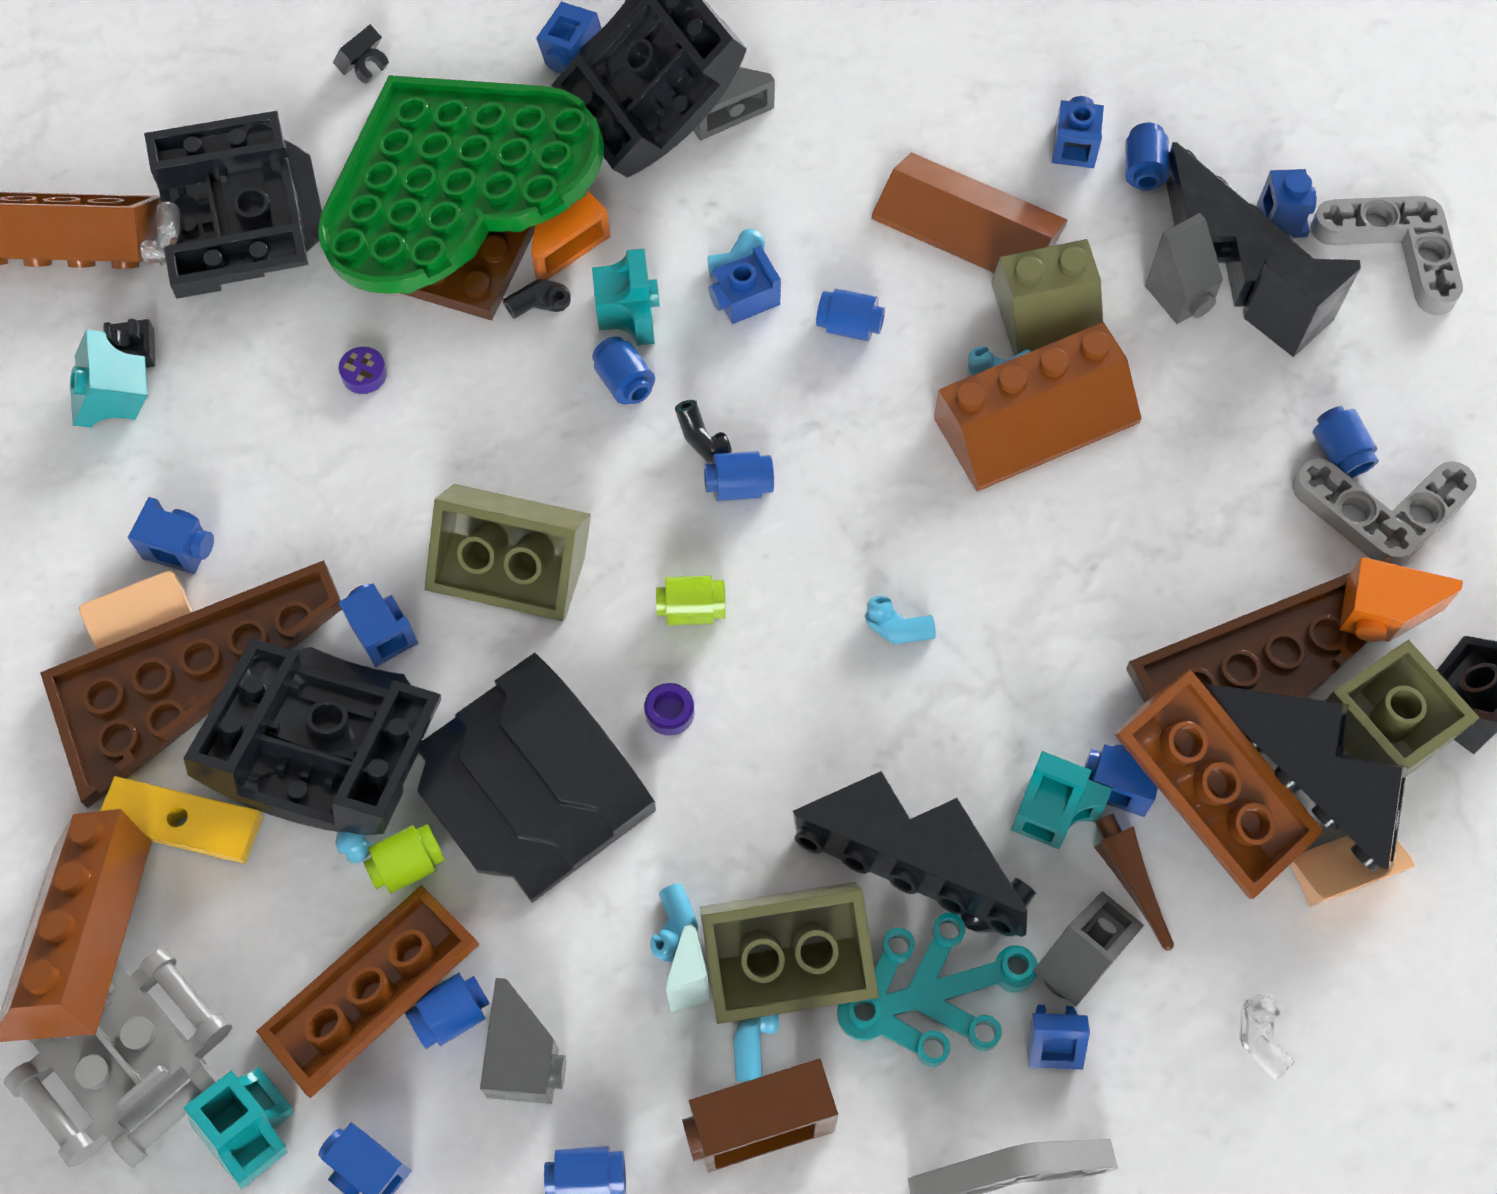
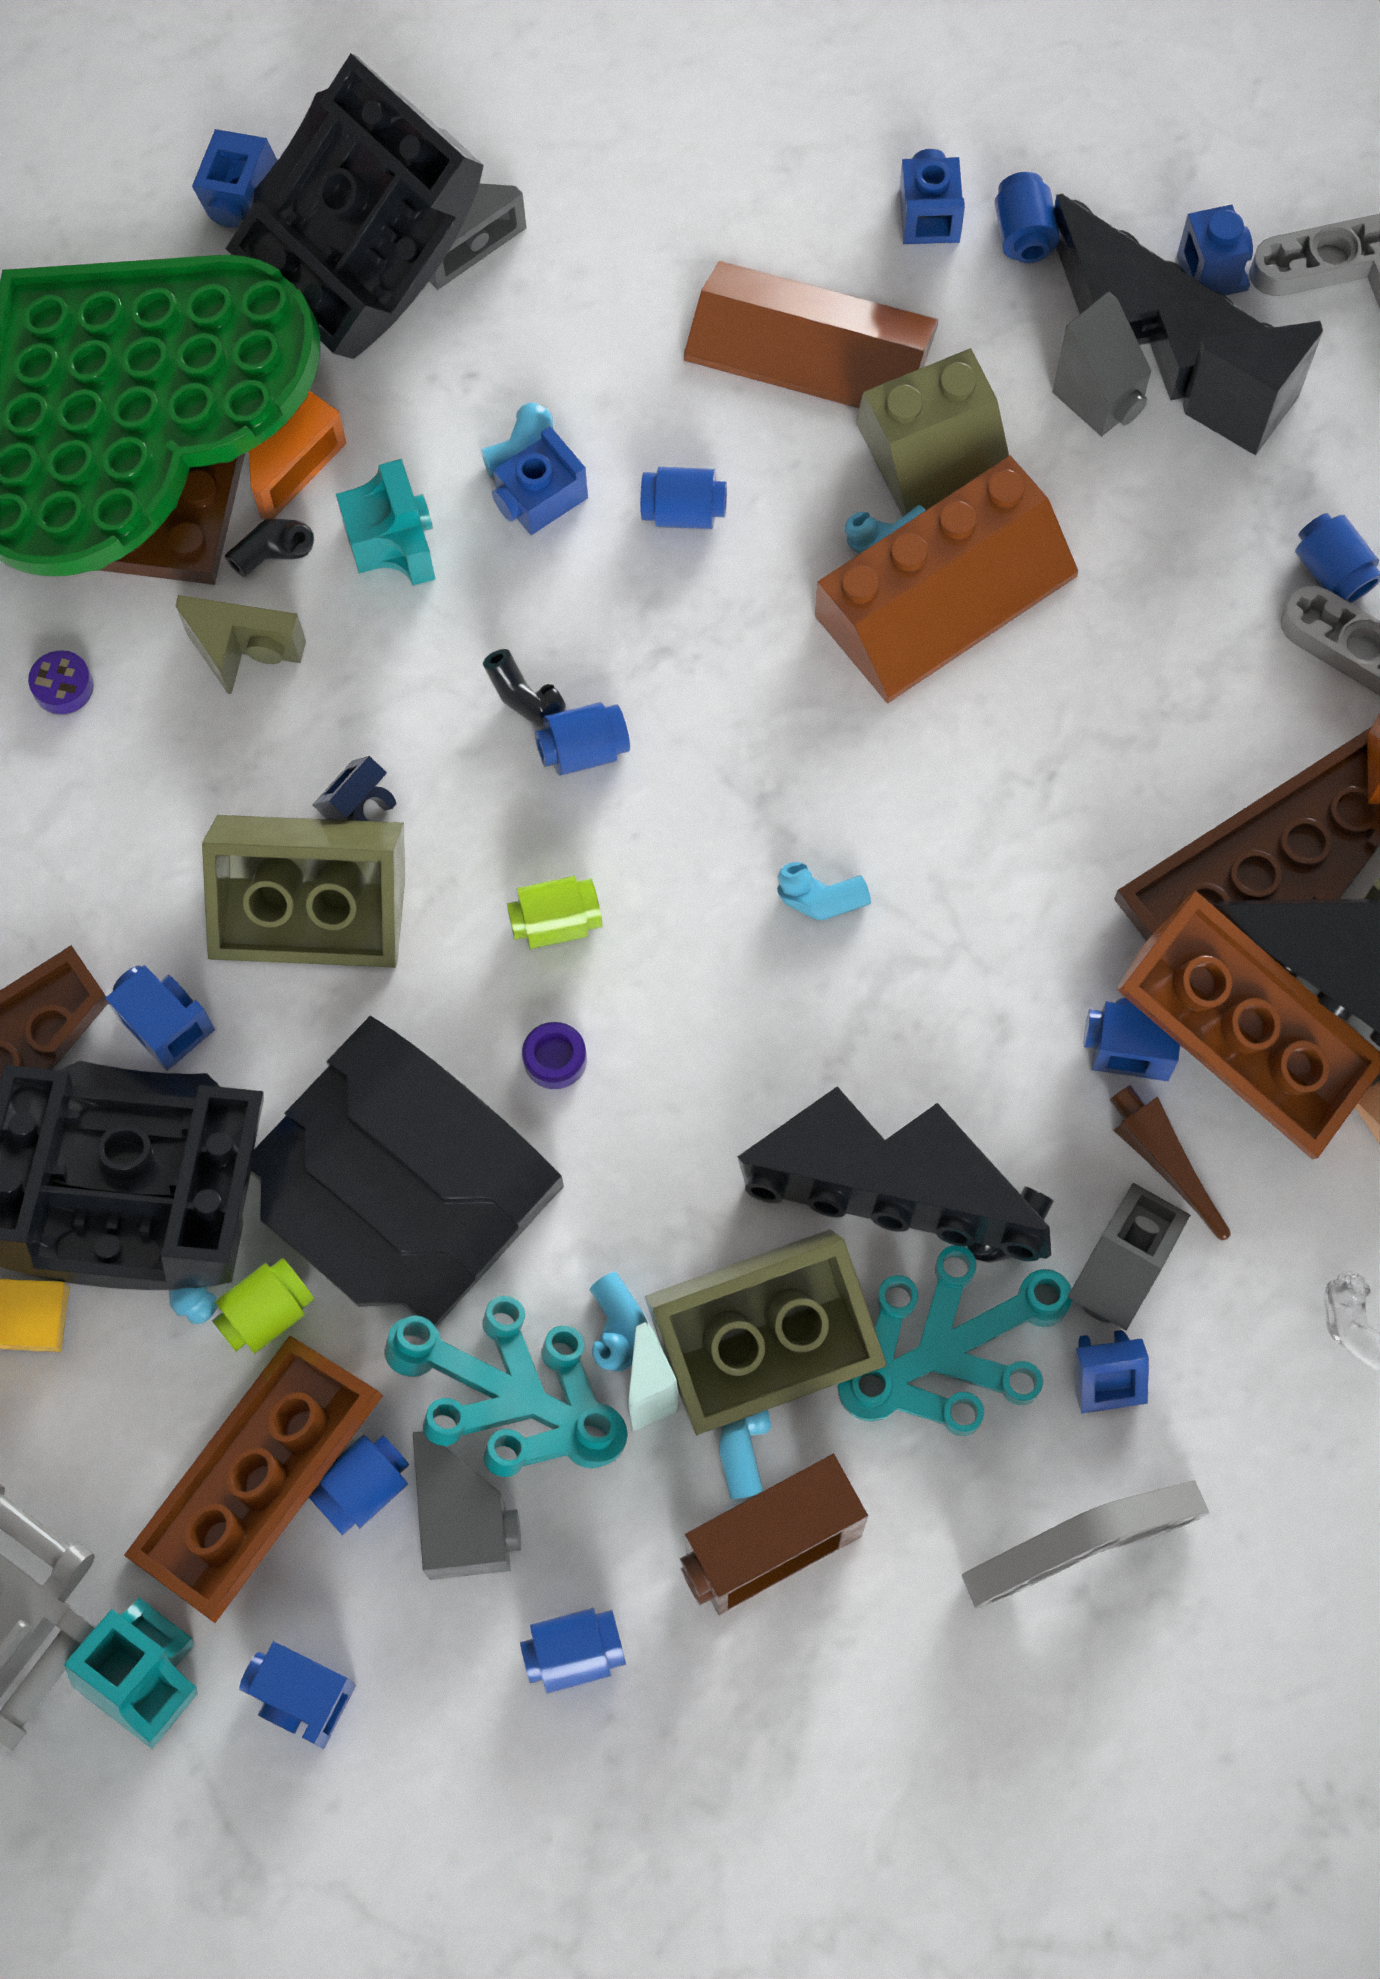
camera: 10 degrees left, 5 degrees up
(496, 353) = (229, 630): none -> olive slope
(559, 483) = (352, 789): none -> dark blue tile
(581, 964) = (514, 1394): none -> teal plant
(623, 370) = (404, 624): blue brick -> none
(1057, 799) = (1057, 1079): teal brick -> none

